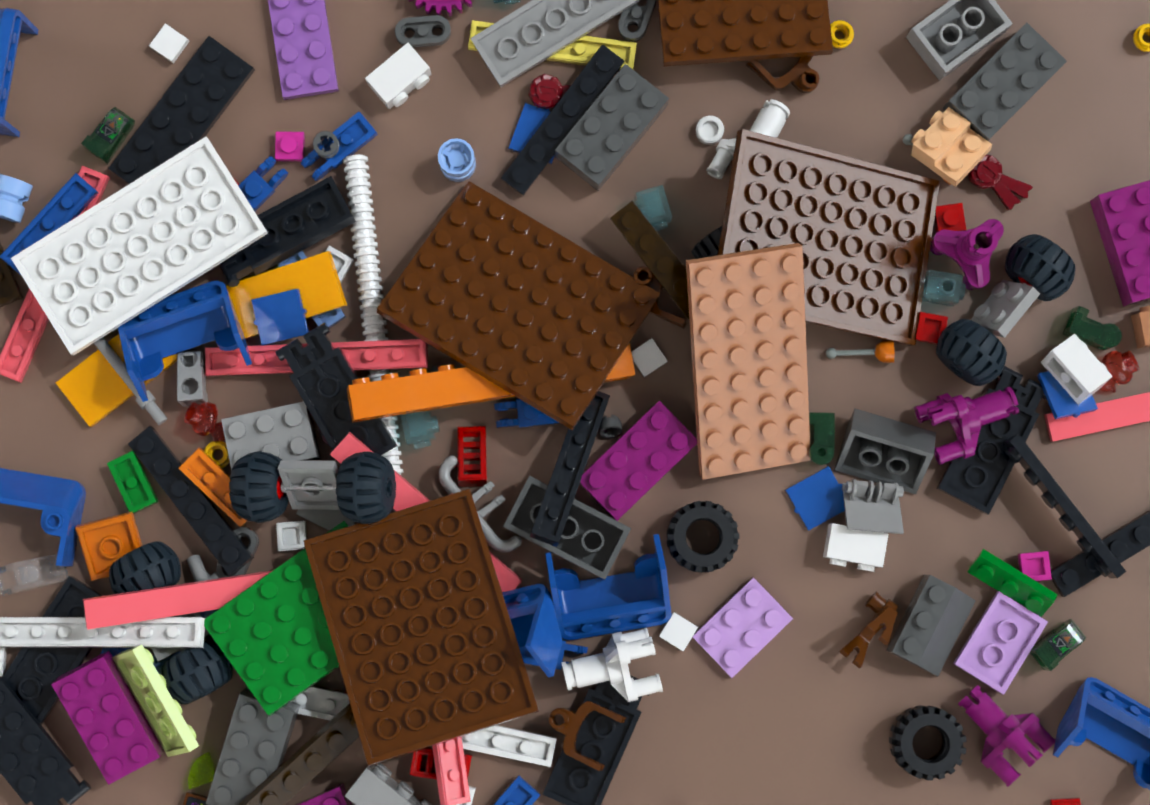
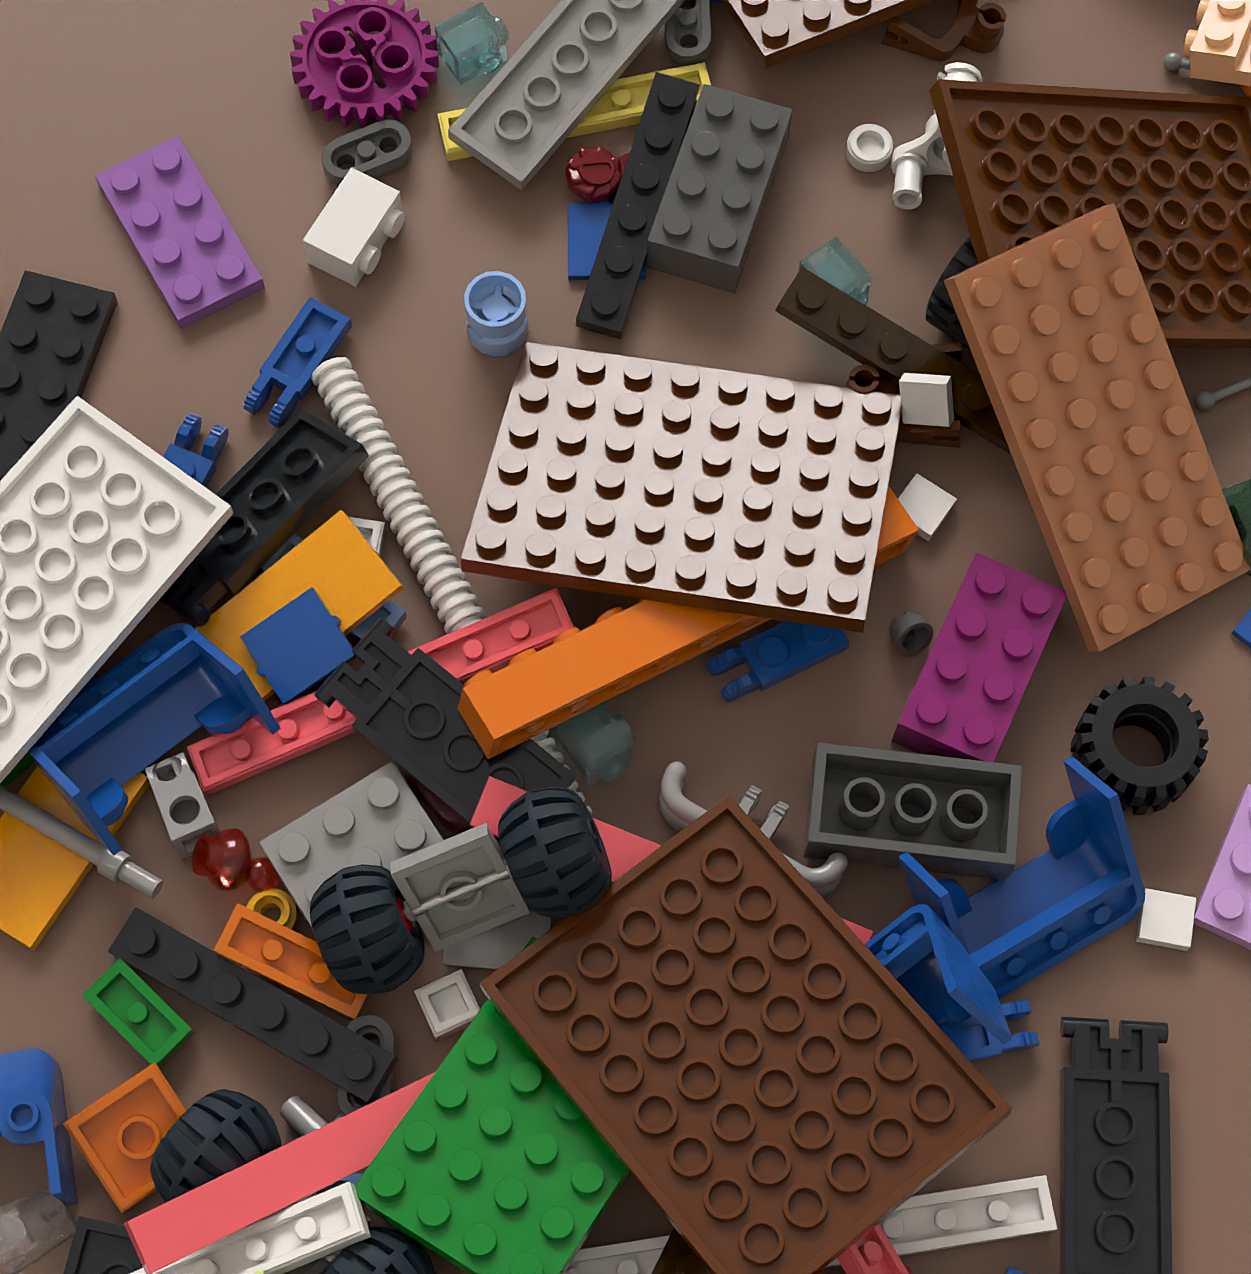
camera: 20 degrees left, 15 degrees down
(290, 146) = (216, 390): dark pink plate -> none
(317, 142) = (277, 344): dark grey bush -> none
(472, 480) = (715, 786): red slope -> none
(568, 473) = (882, 718): black plate -> none
(572, 725) = (1064, 1144): reddish brown piece -> none
(613, 666) = (1096, 1006): white wheel -> none
(670, 302) = (926, 399): none -> white tile

